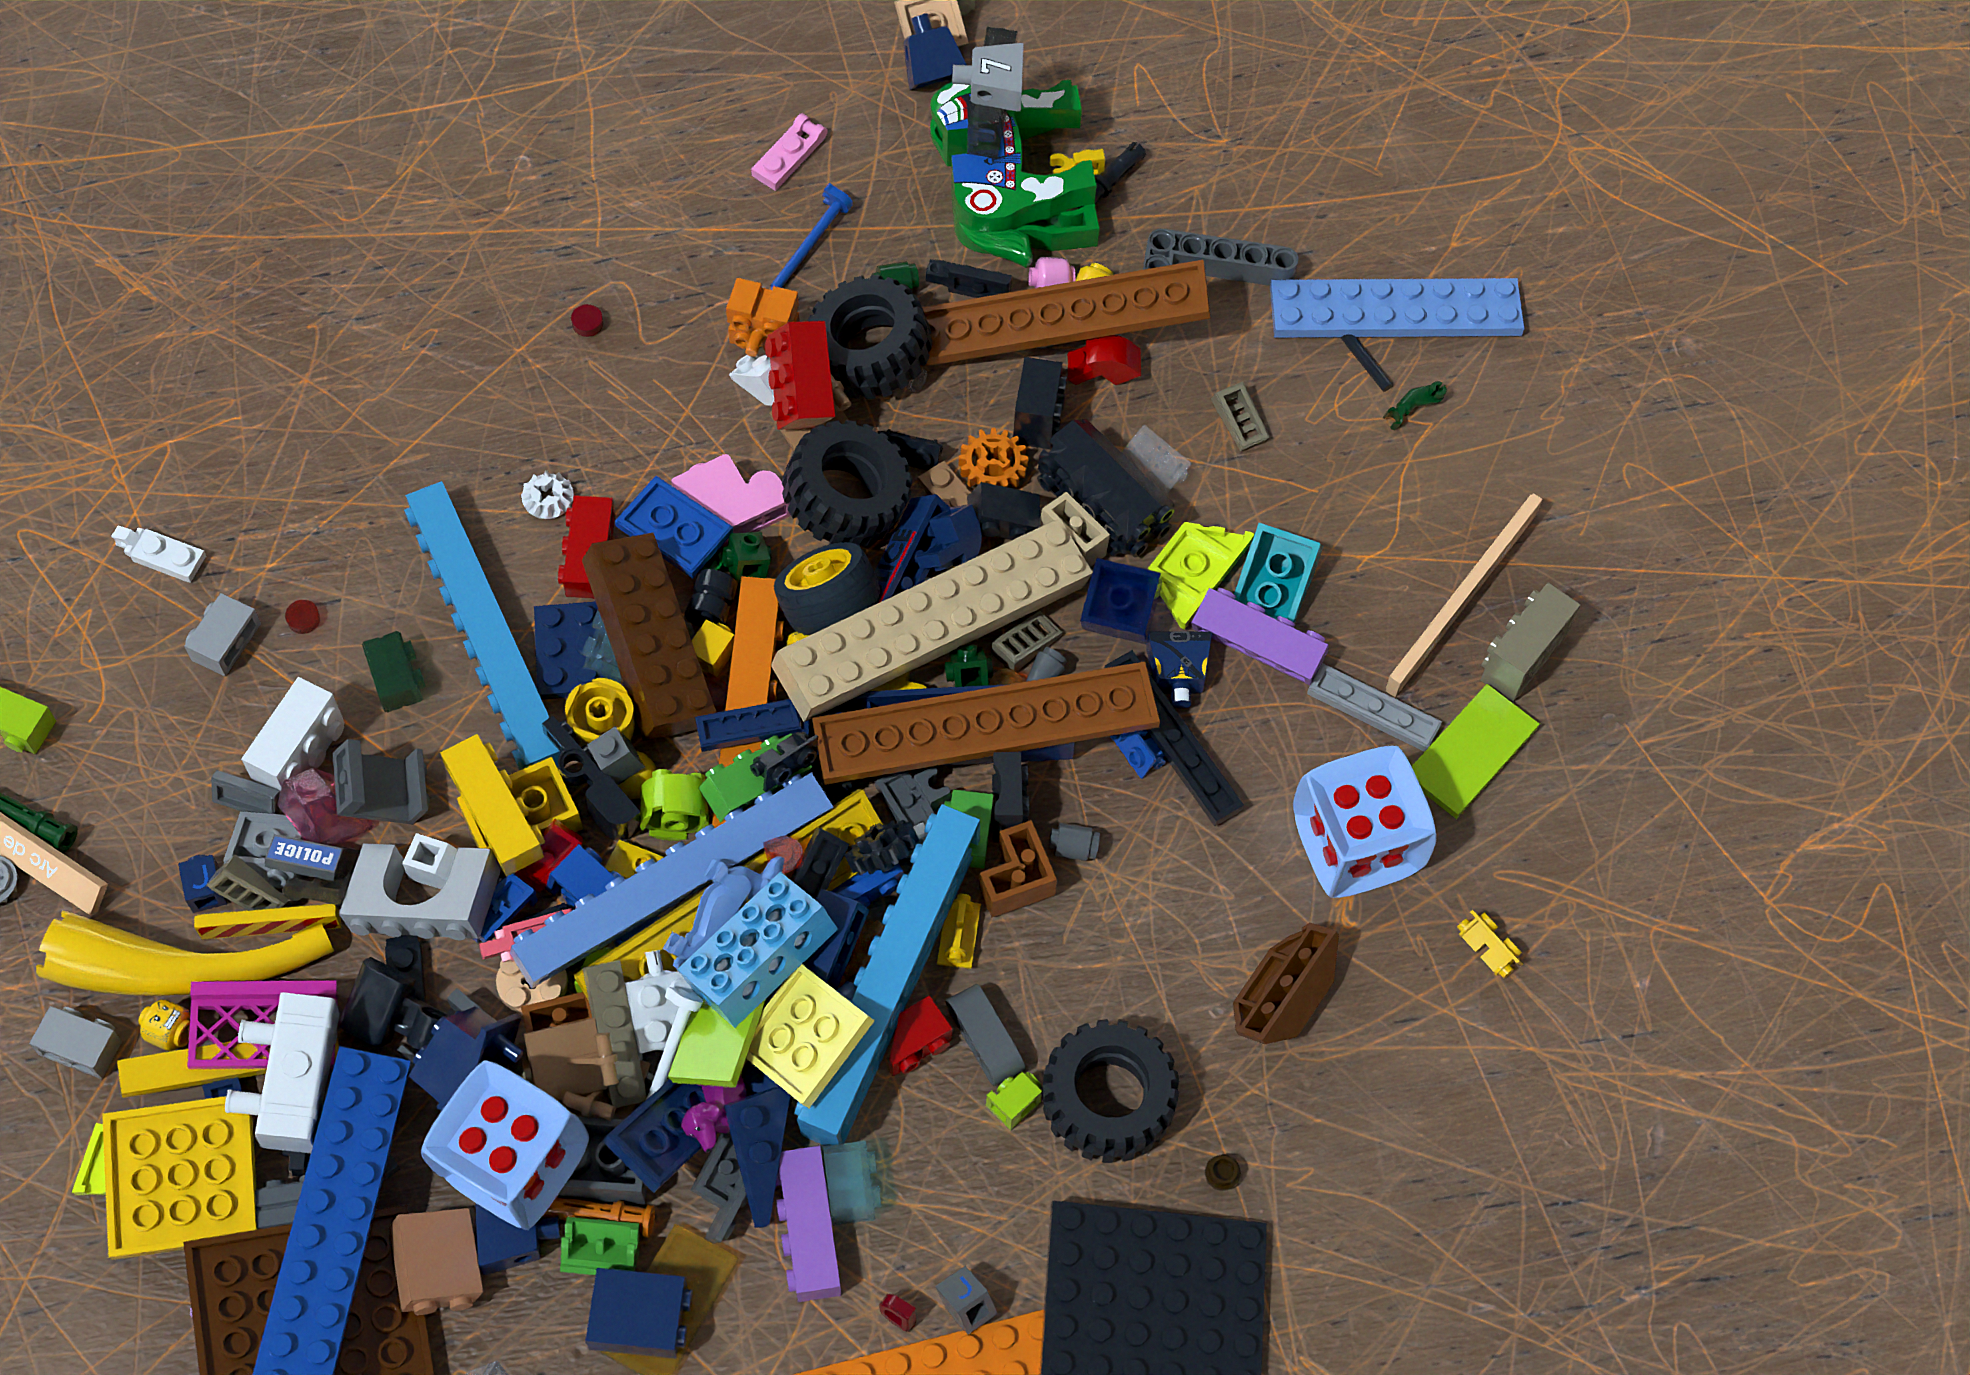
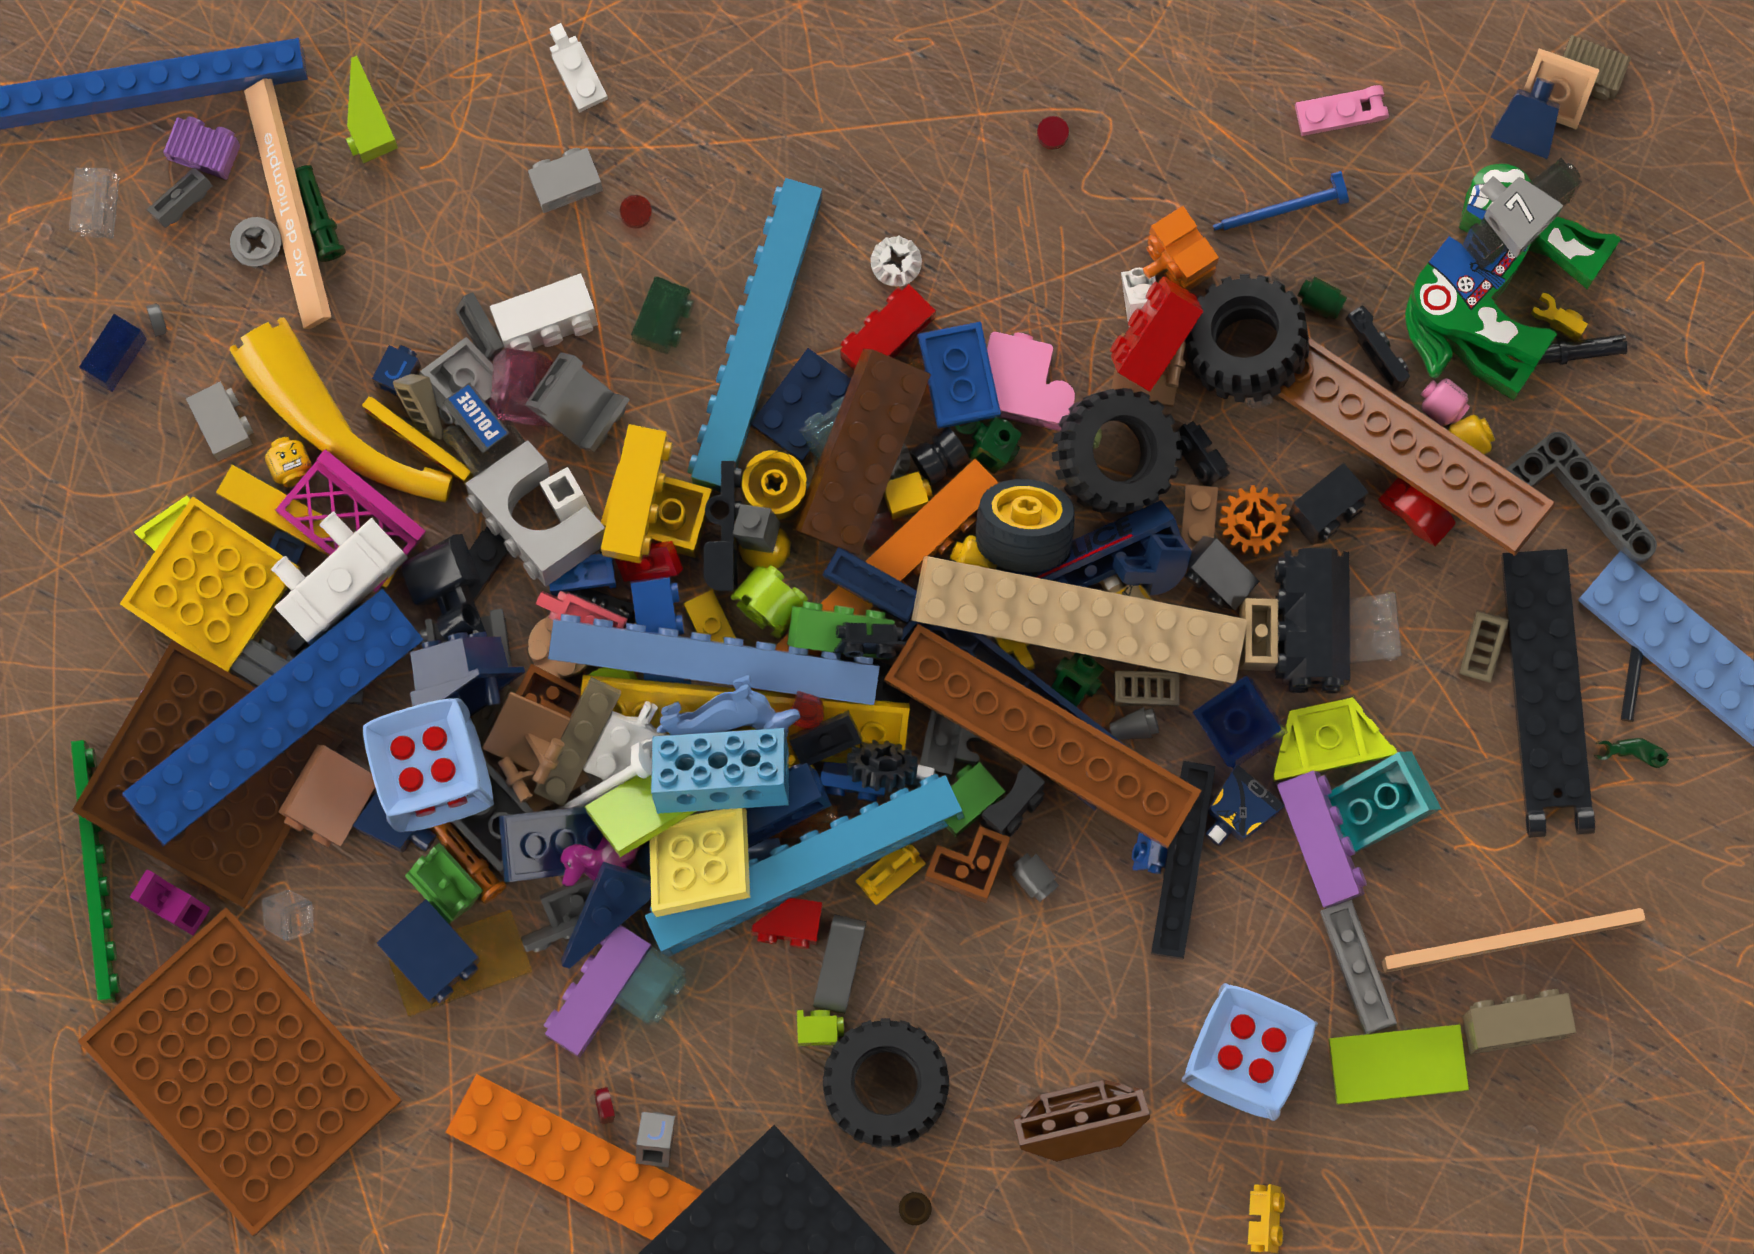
camera: 45 degrees right, 15 degrees up
(1315, 411) = (1547, 687): none -> black hinge

